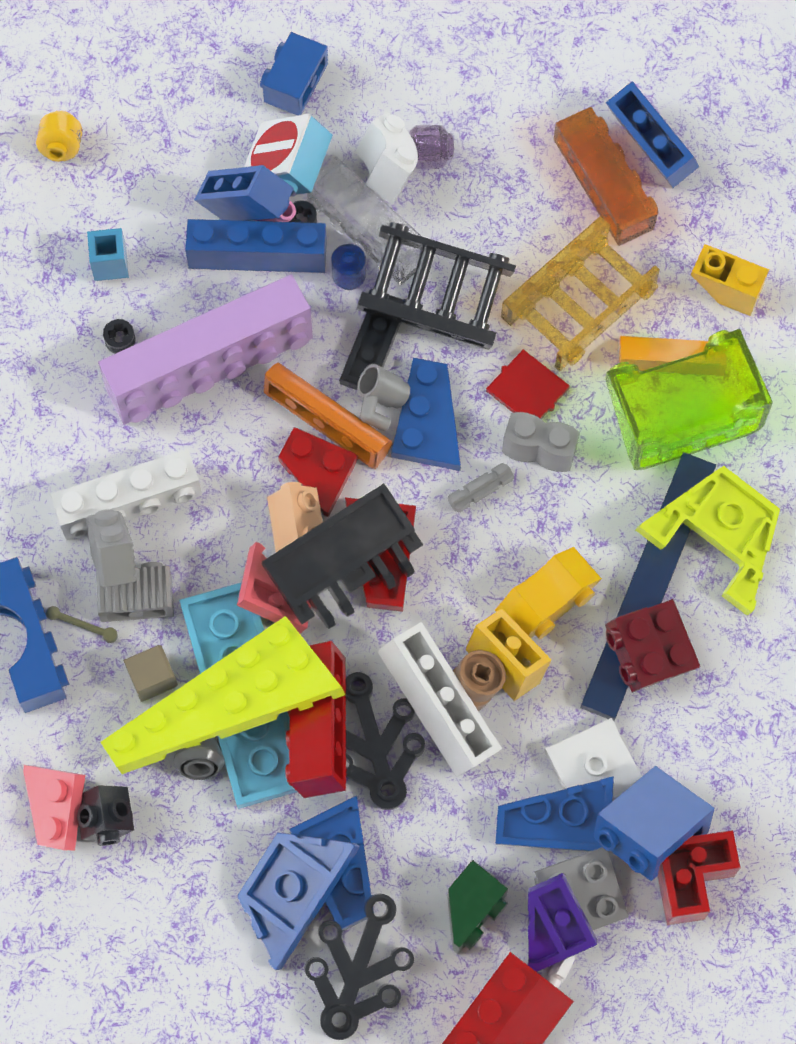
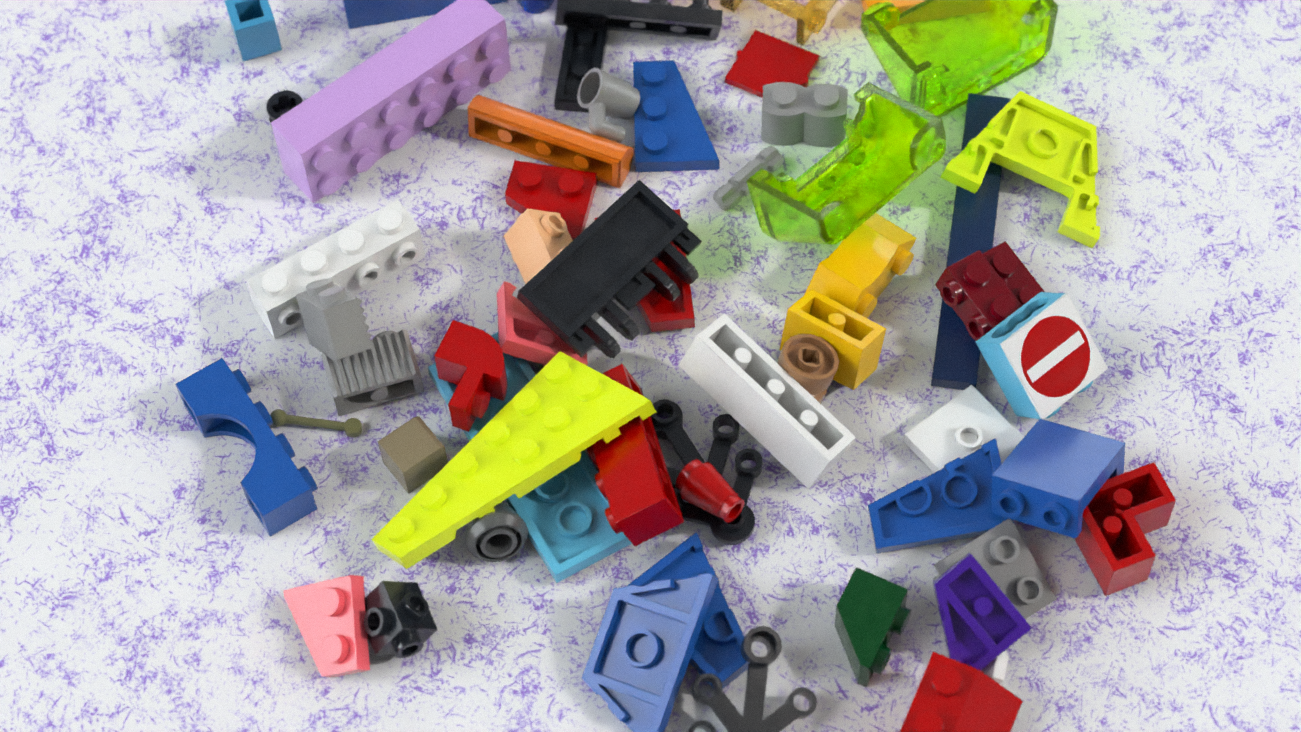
camera: 10 degrees left, 10 degrees down
(218, 614) = (478, 368): none -> red brick
(373, 764) = (708, 490): none -> red cone
(561, 517) = (881, 155): none -> clear neon green windscreen
(672, 711) = (1042, 355): none -> piece

